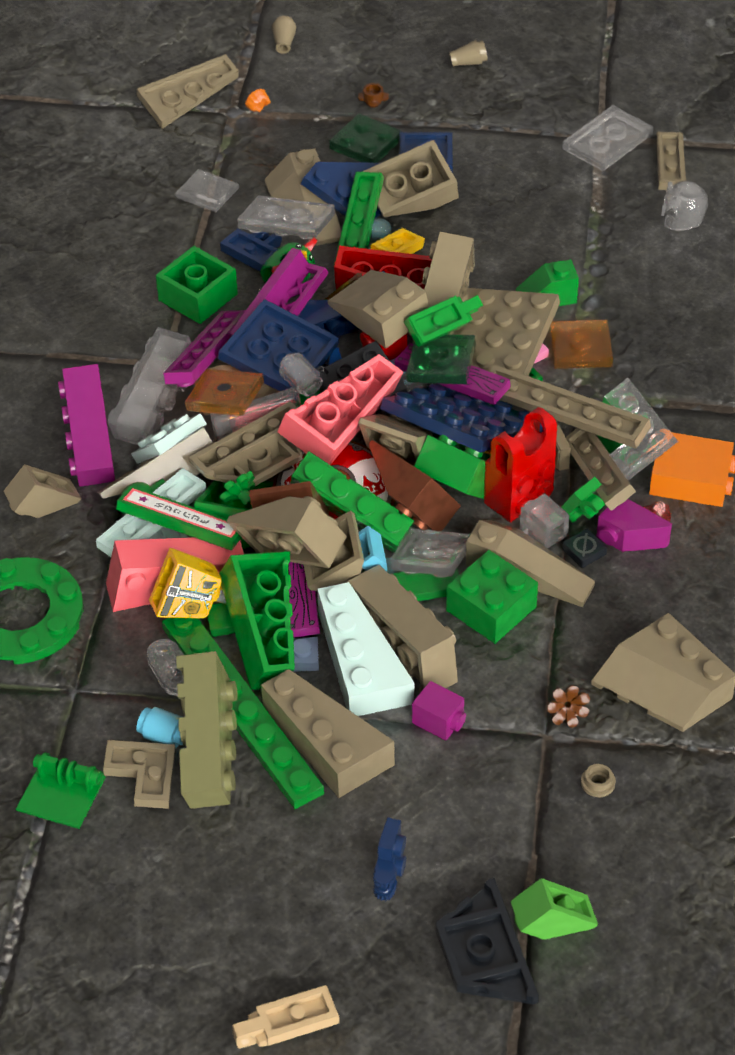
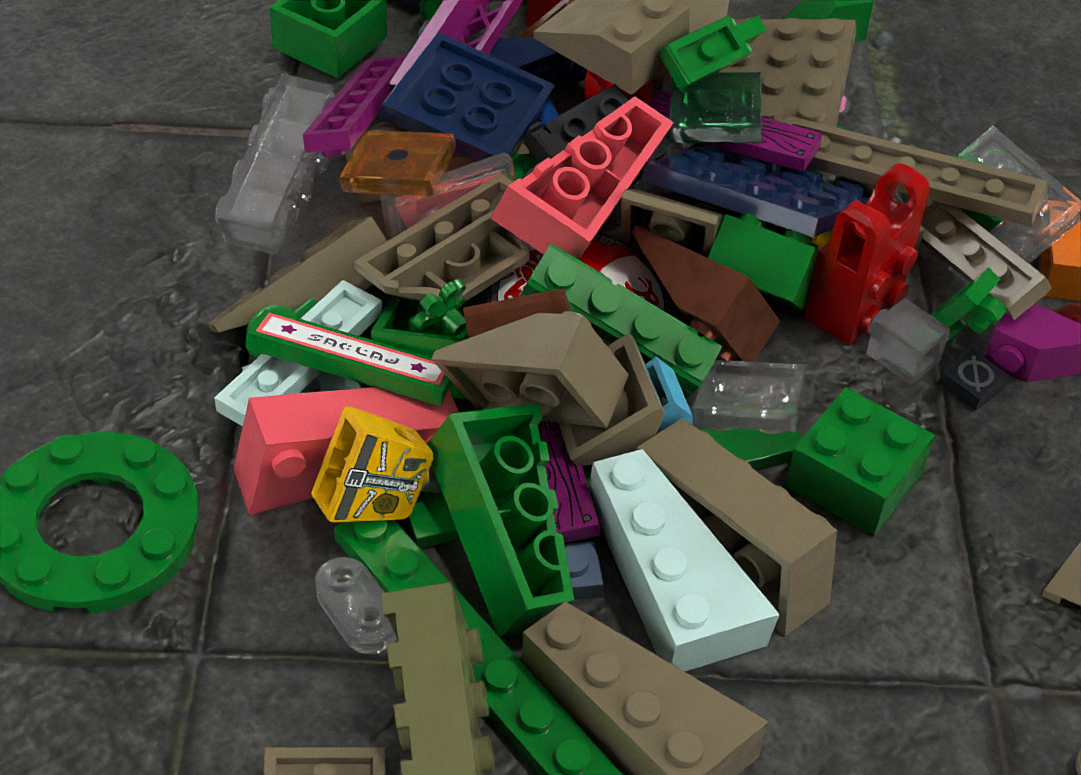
camera: 10 degrees left, 0 degrees up
(40, 492) = (114, 327): dark tan slope -> none
(88, 425) = (185, 222): magenta wedge -> none
(159, 726) = (356, 715): medium azure brick -> none
(169, 436) = (312, 235): light aqua plate -> none
(300, 374) = (511, 133): clear brick -> none
(438, 711) = (819, 658): magenta brick -> none
(551, 572) = (957, 430): dark tan wedge -> none
(568, 705) = (1024, 635): reddish brown plant -> none
(581, 344) = (889, 92): clear orange tile -> none

